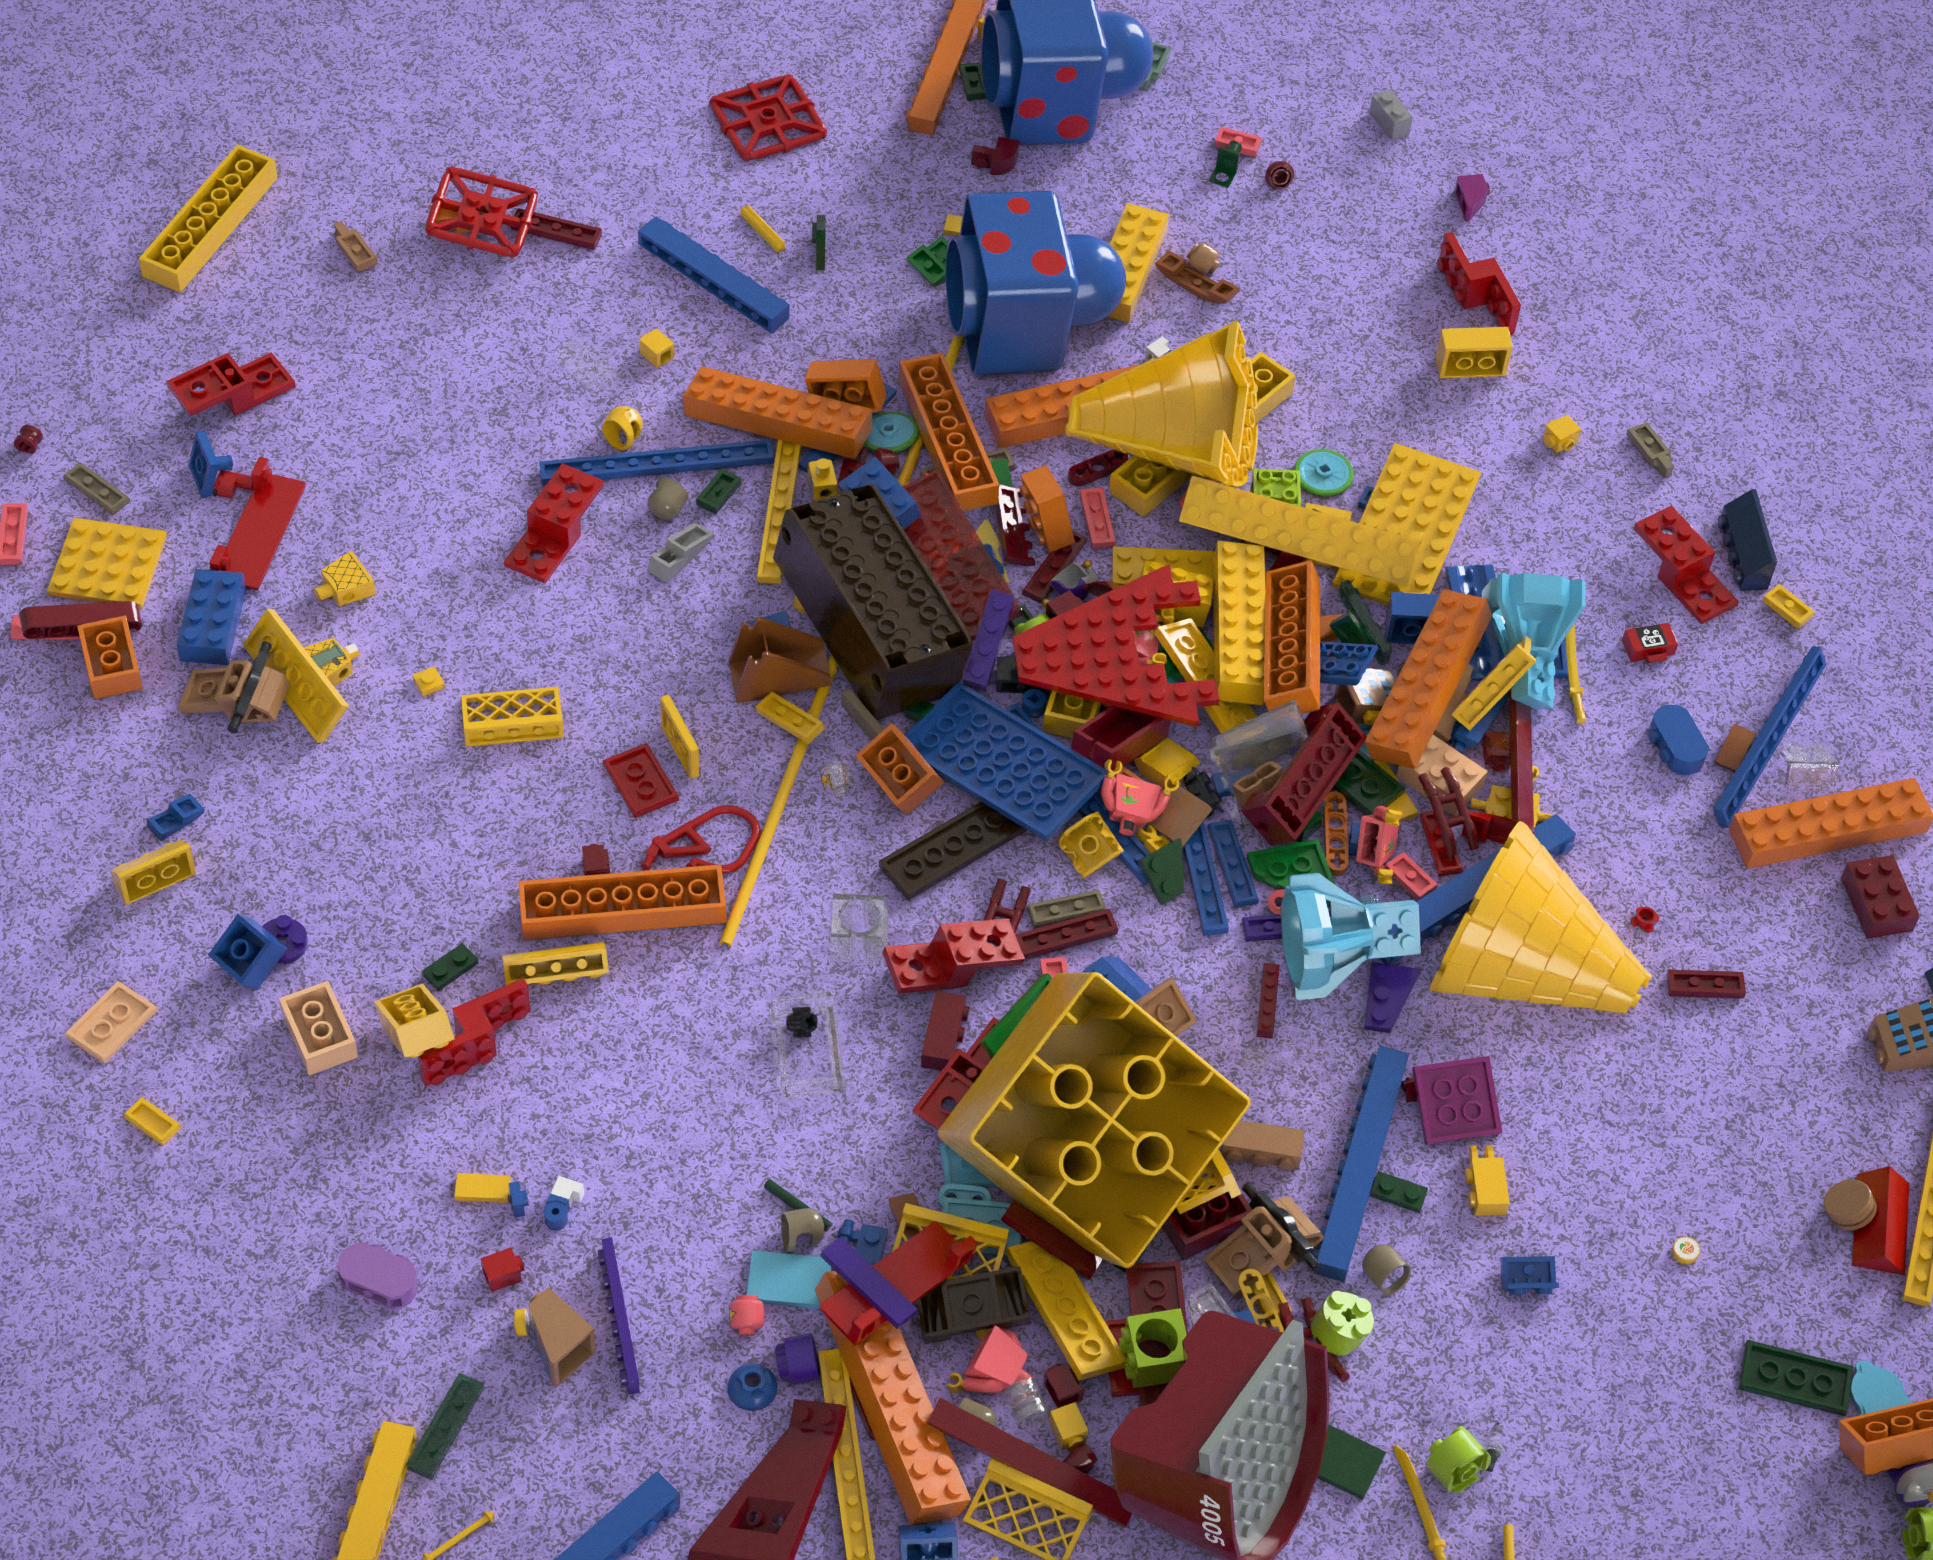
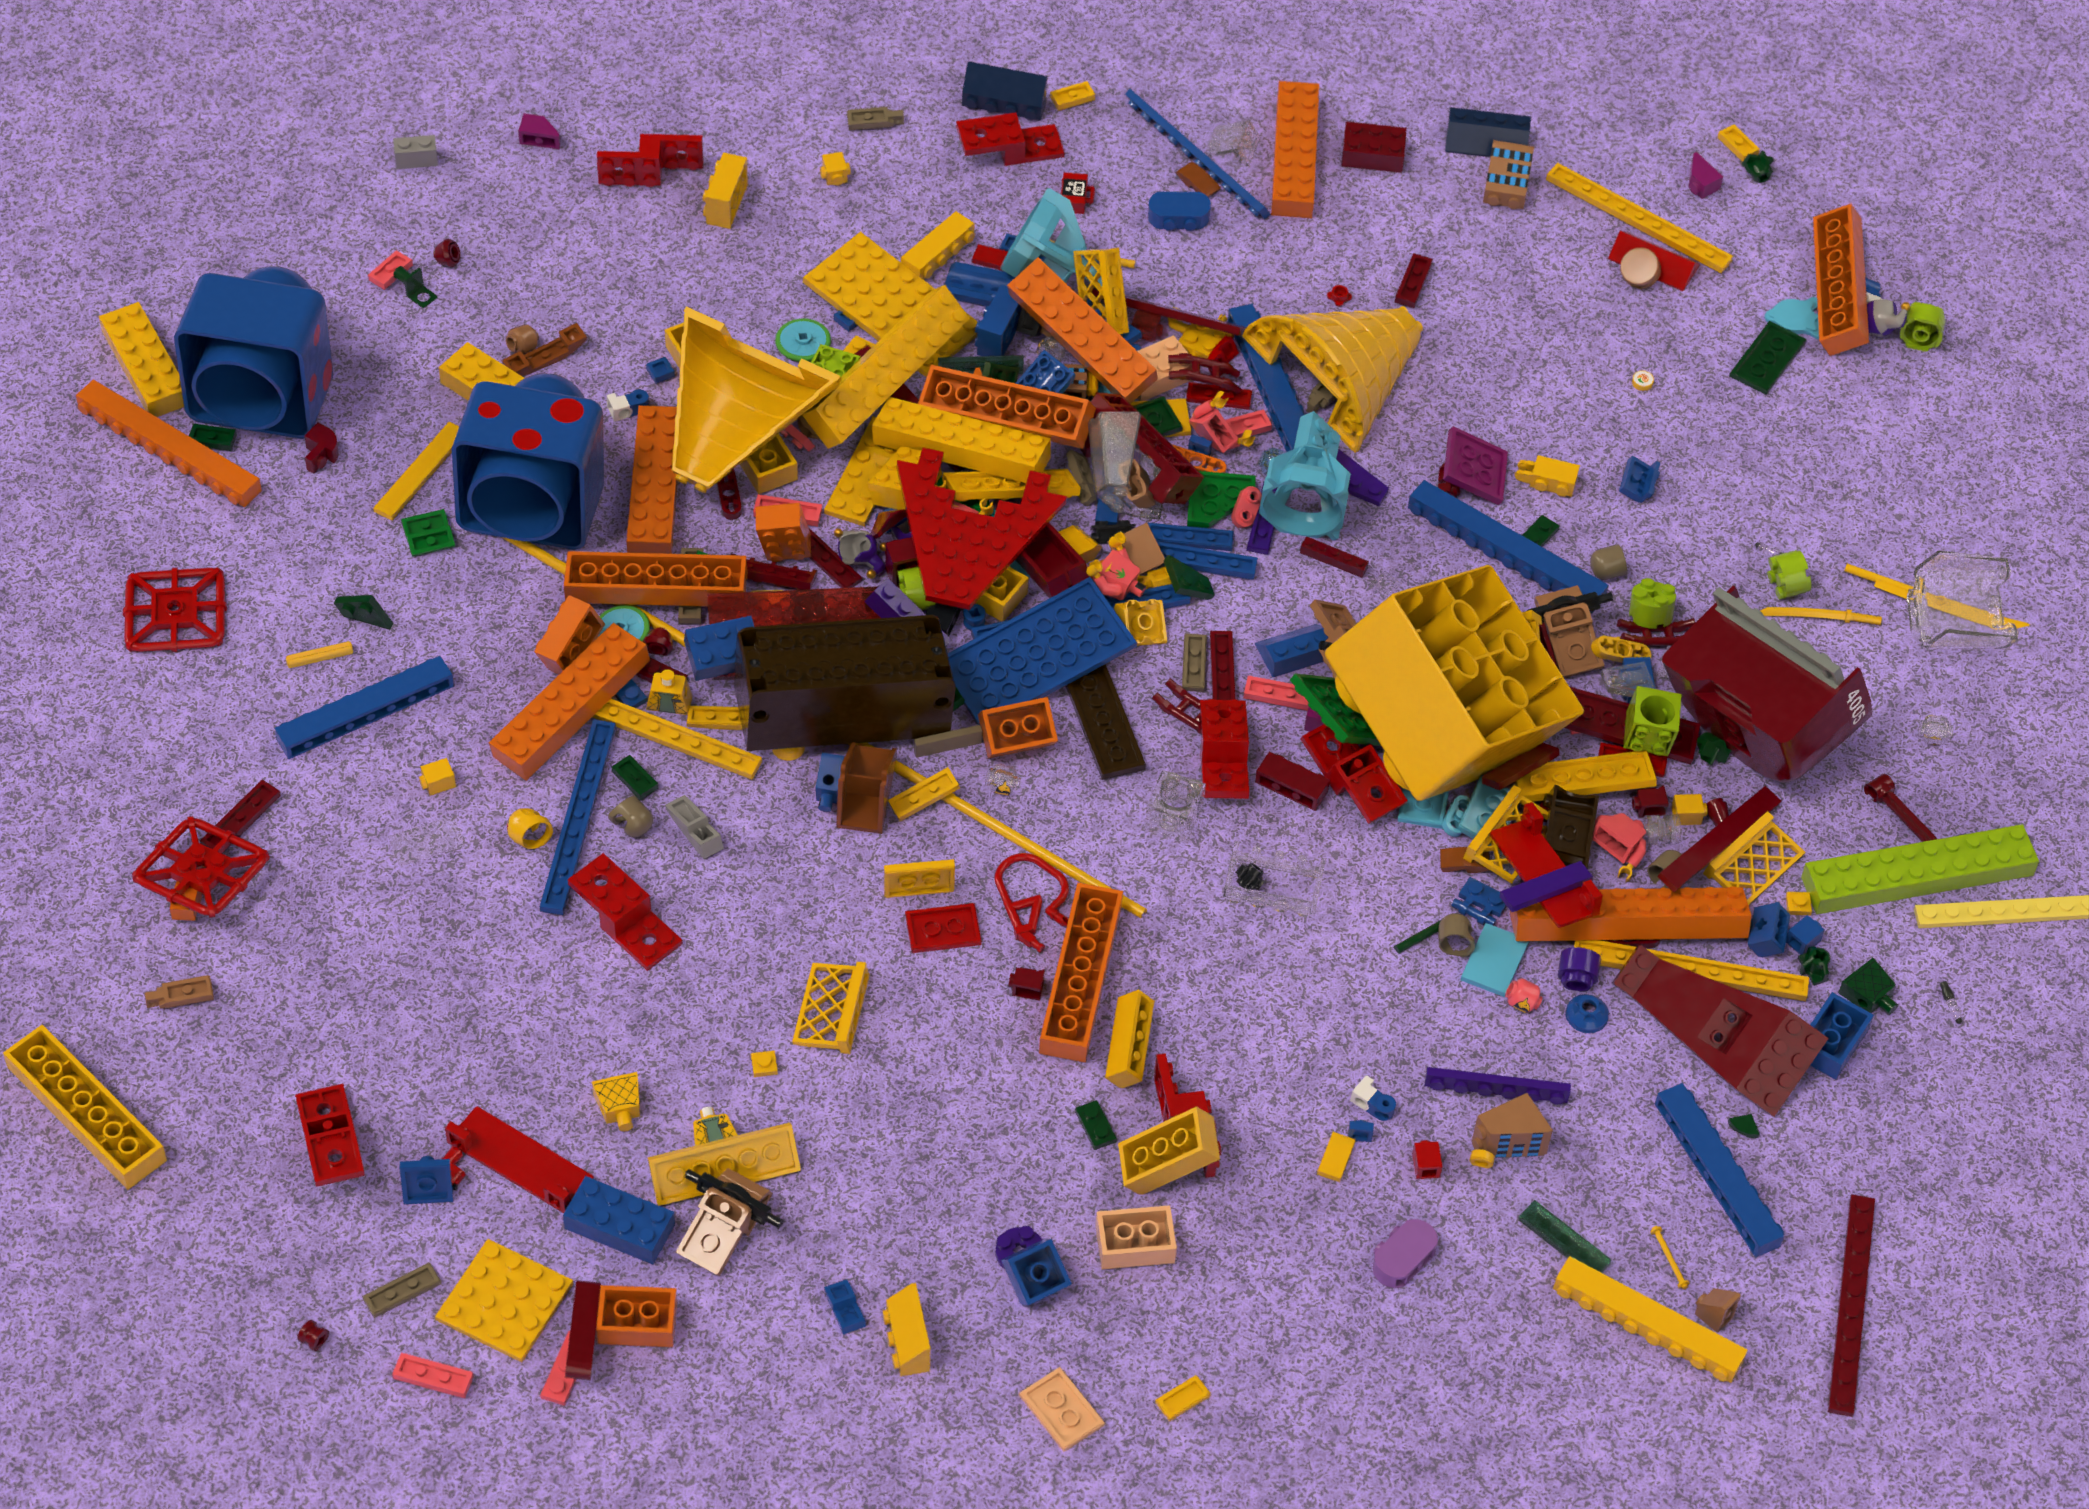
camera: 70 degrees left, 0 degrees up
(1502, 543) = (939, 245): none -> yellow brick

